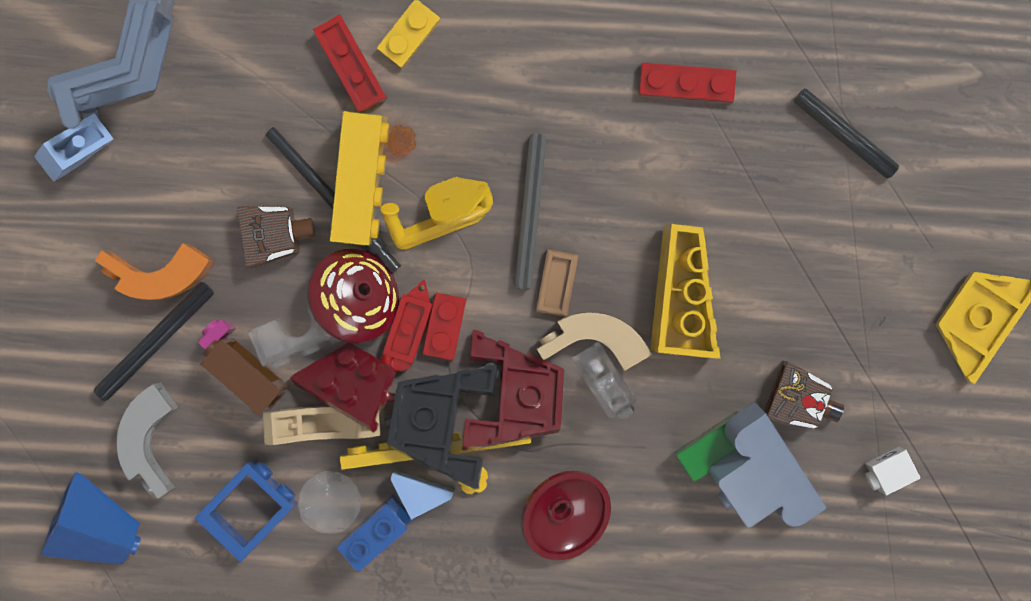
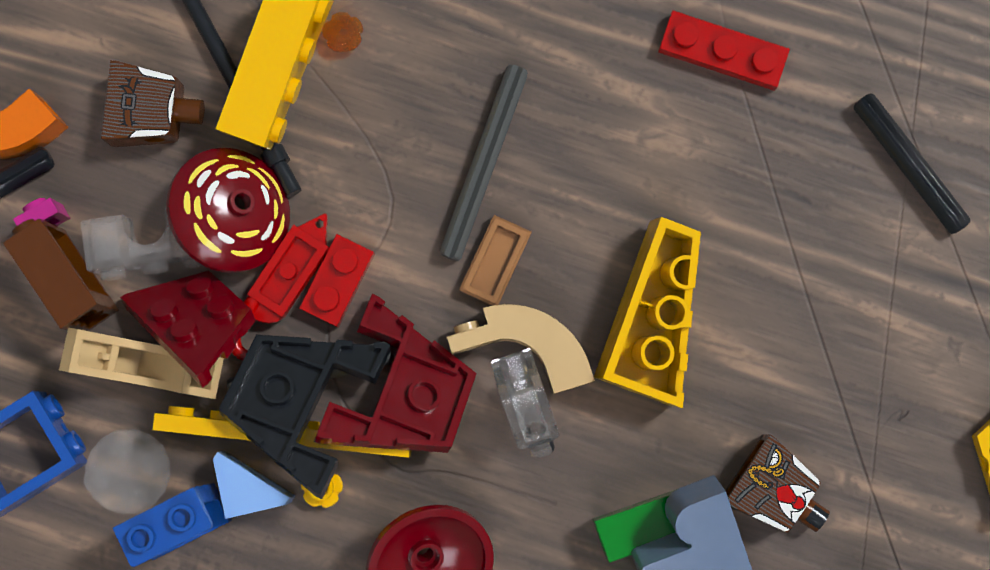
camera: 10 degrees right, 5 degrees down
(451, 207) = (380, 131): yellow piece -> none

